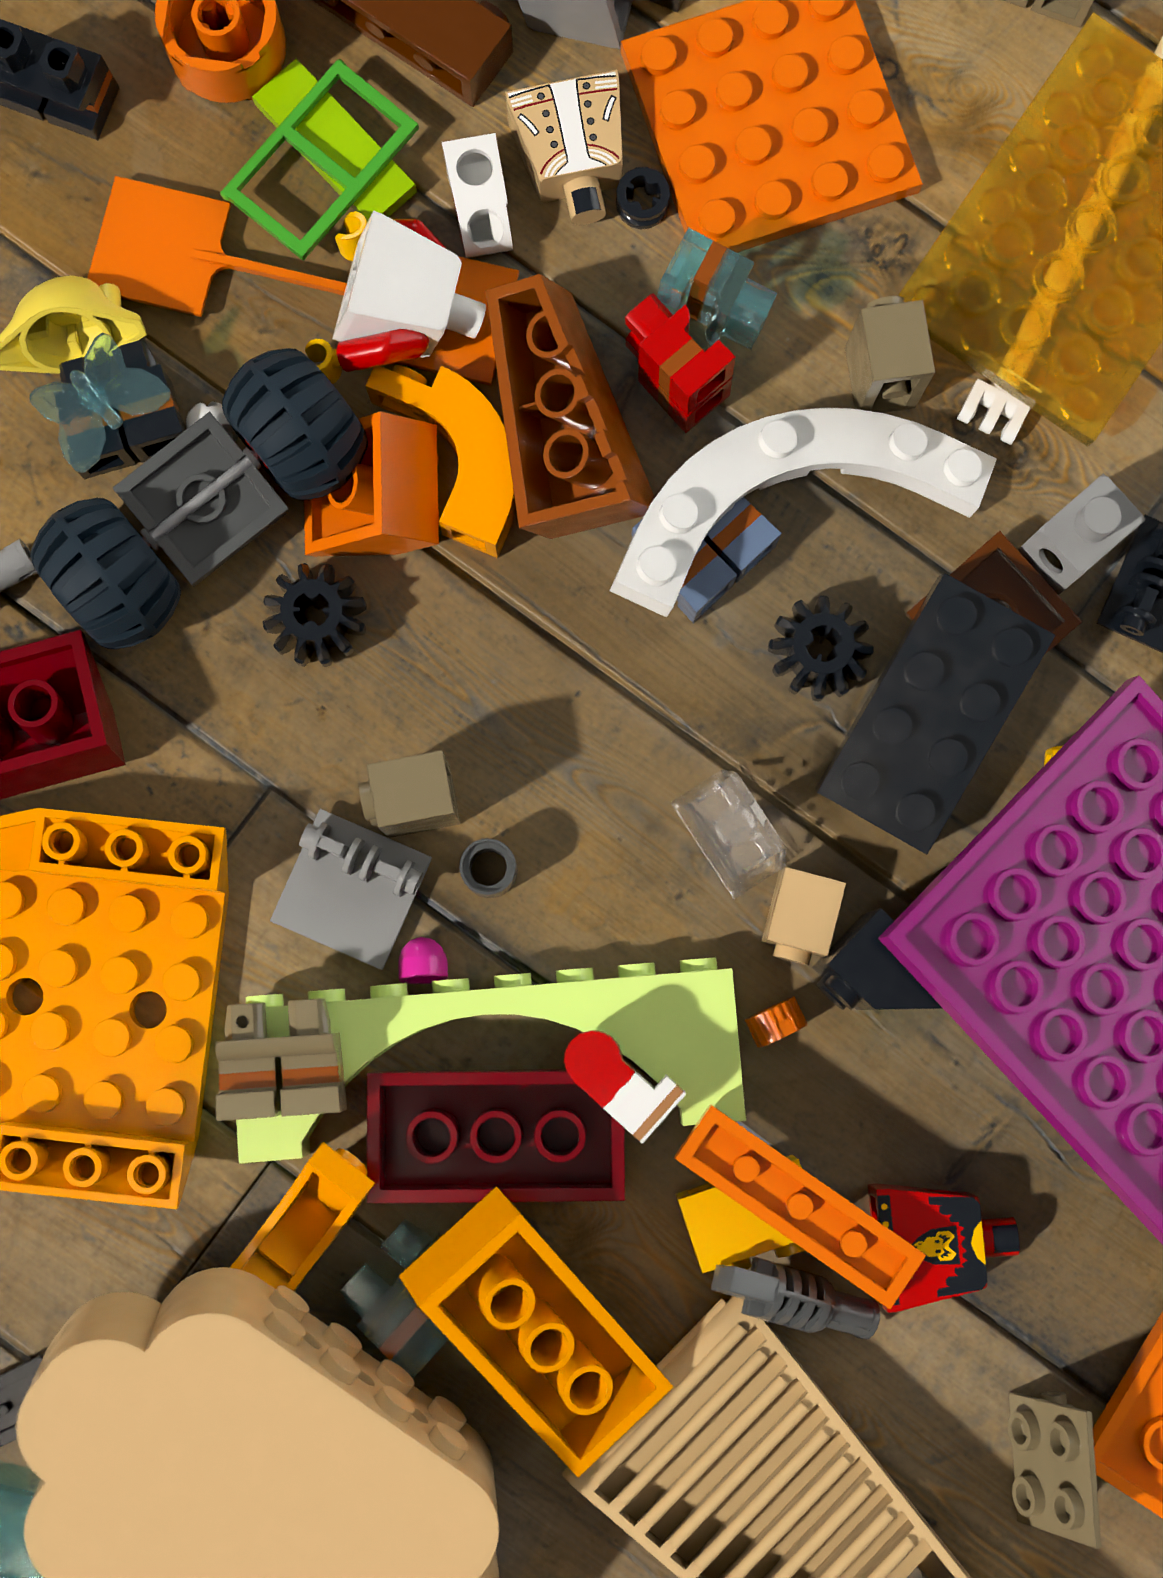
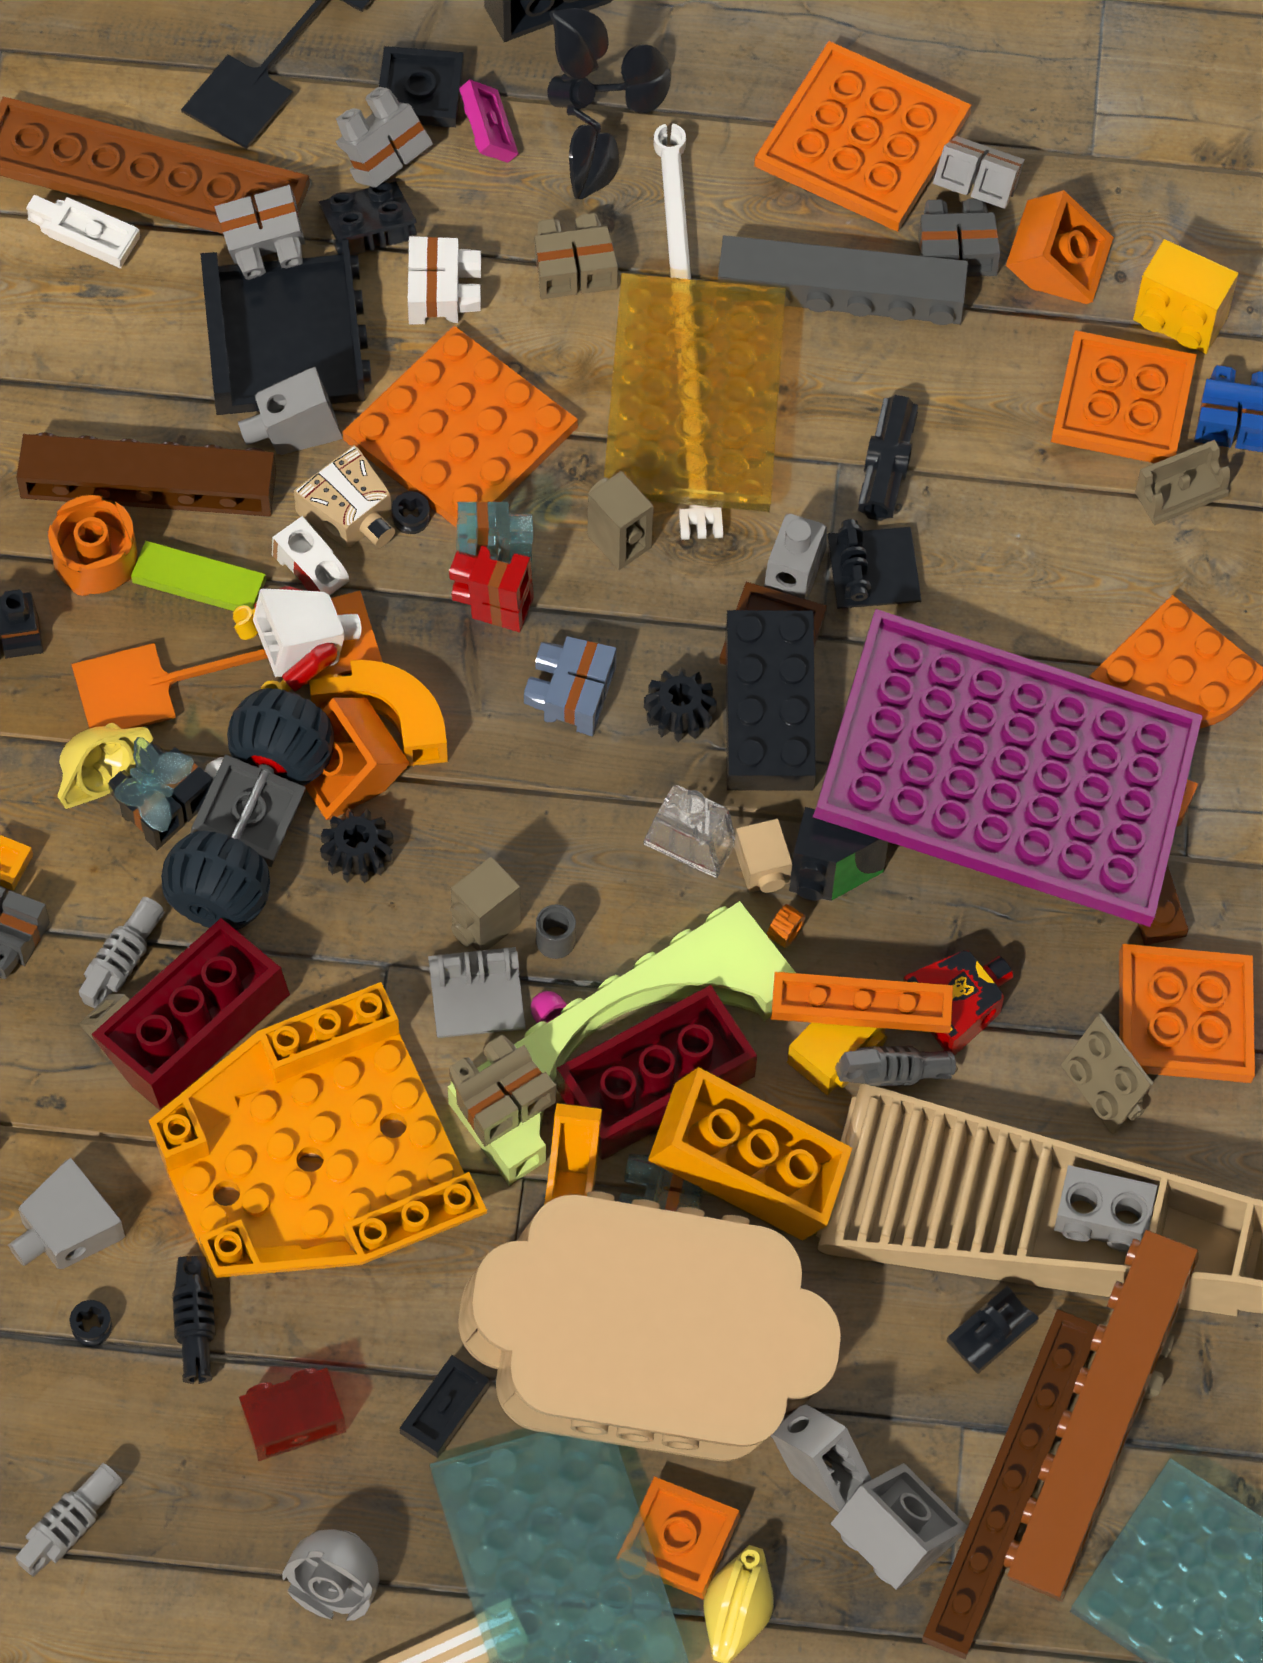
camera: 30 degrees left, 20 degrees down
(353, 186) = (227, 593): bright green window -> none
(560, 418) = (450, 660): dark orange wedge -> none
(598, 1068) = (712, 985): leg -> none
(781, 450) = (590, 600): white plate -> none

